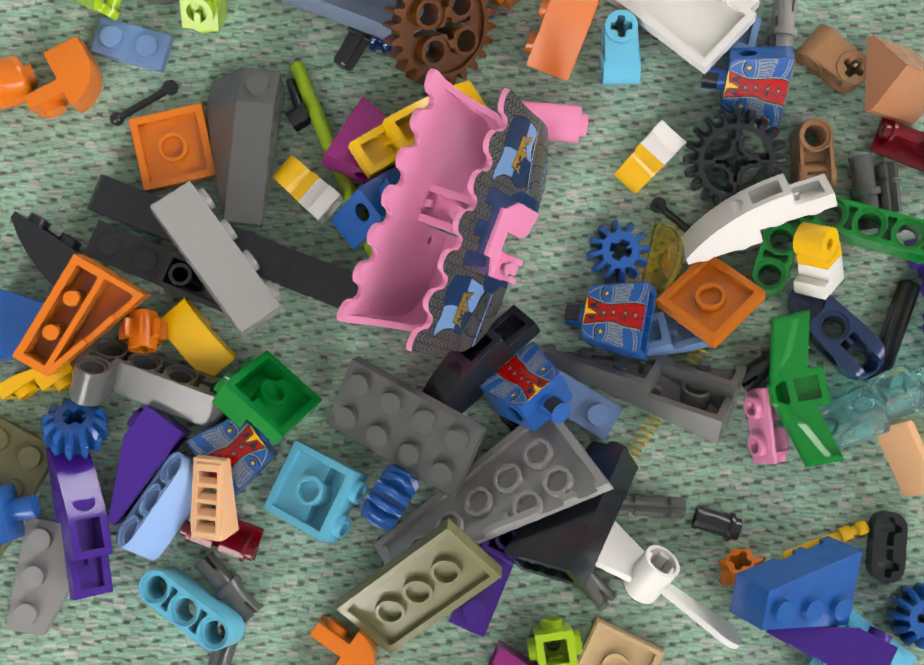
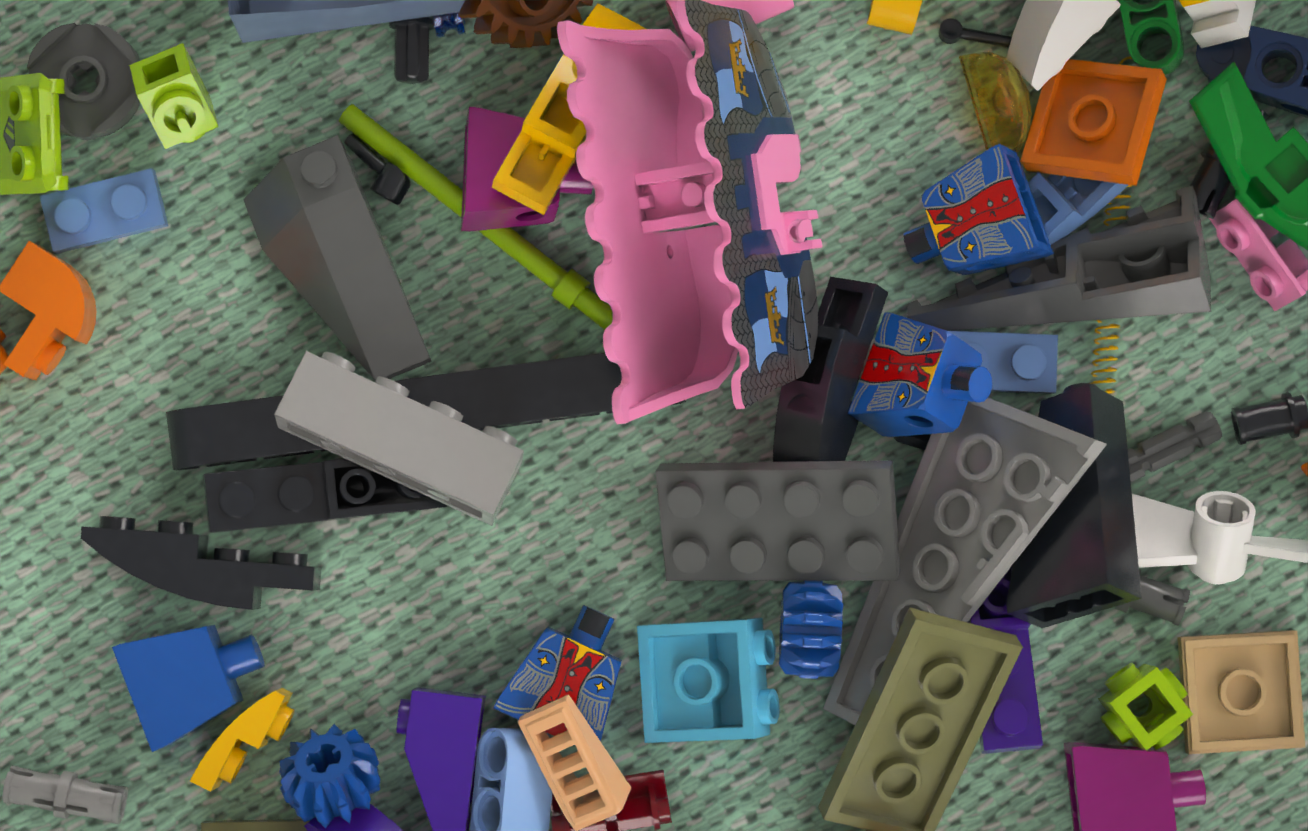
camera: 25 degrees left, 0 degrees up
(76, 314) = (256, 614): orange wedge -> none
(143, 331) = (349, 592): orange gear -> none
(145, 378) = (399, 654): dark grey beam -> none
(169, 87) = (189, 242): black hinge -> none
(173, 148) = (244, 321): orange plate -> none
(195, 339) = (424, 565): yellow slope -> none
(265, 396) = (568, 585): green plate -> none
(308, 189) = (460, 275): leg -> none
(367, 196) = (567, 234): blue torso -> none
(625, 264) = (950, 138): blue gear -> none

